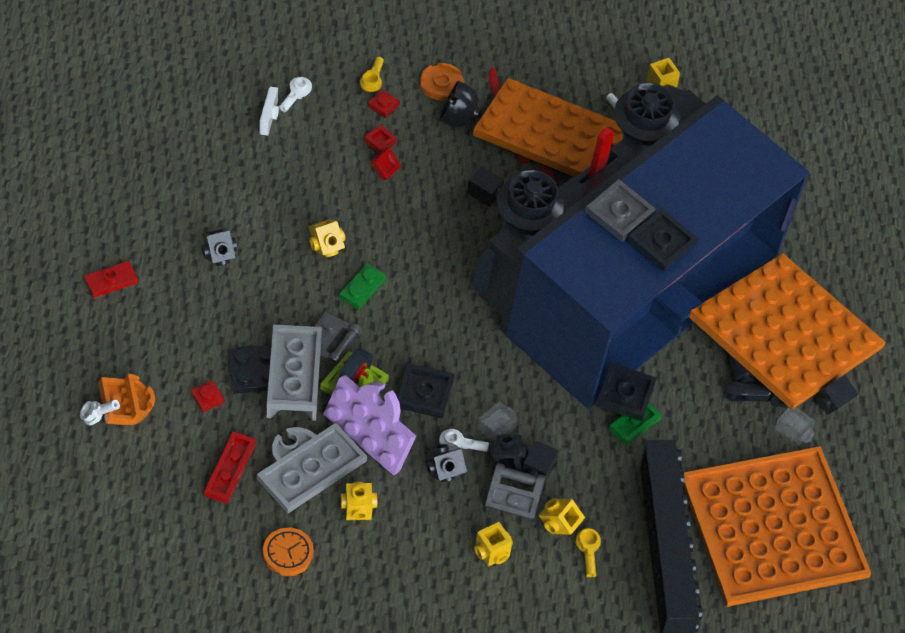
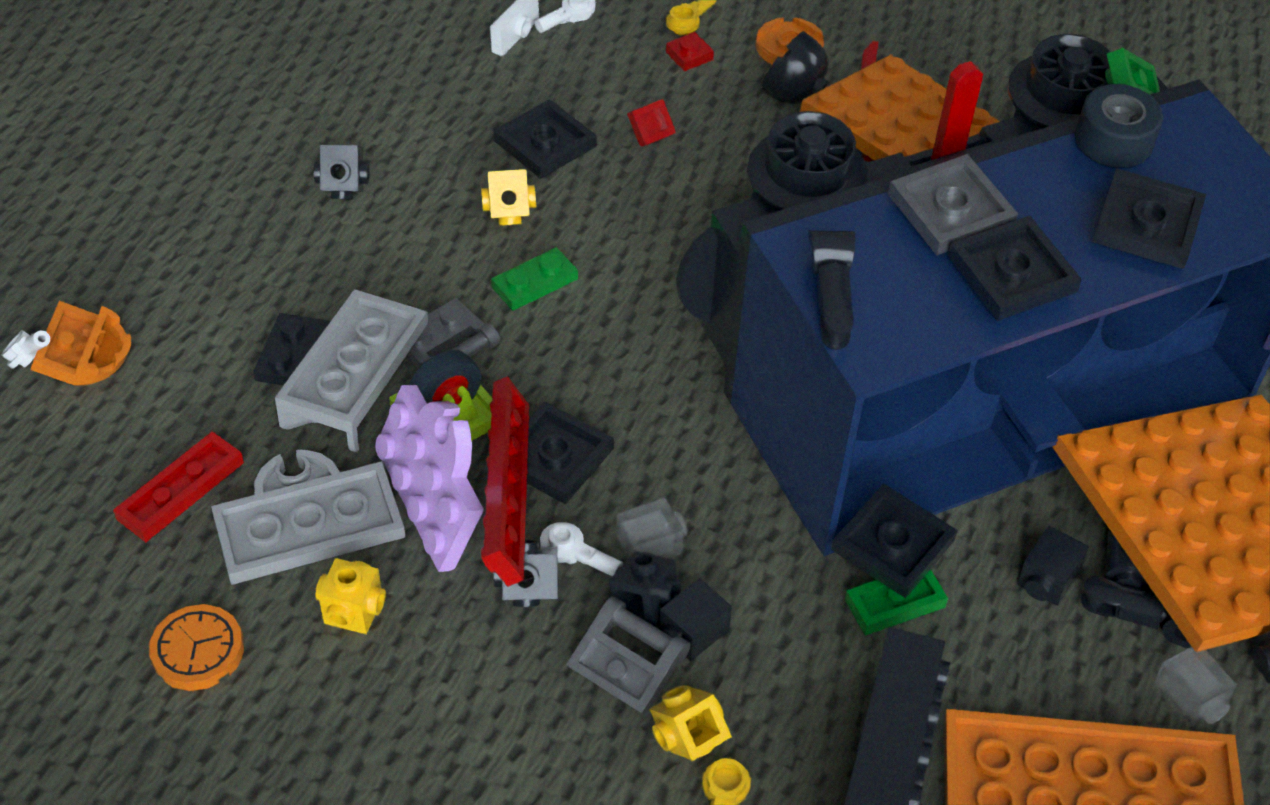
camera: 25 degrees right, 5 degrees down
(111, 279) = (169, 181): red plate -> none
(207, 396) = (210, 373): red plate -> none
(326, 190) = (545, 138): none -> black plate
(380, 139) = (660, 87): red plate -> none
(419, 421) = (506, 483): none -> red plate
(493, 544) = (544, 737): yellow brick -> none
(574, 259) = (832, 262): none -> black piece
(683, 103) = (1132, 71): none -> green plate
(687, 140) = (1118, 125): none -> black wheel
(707, 382) = (1052, 566): none -> black brick
(719, 192) = (1149, 218): none -> black plate

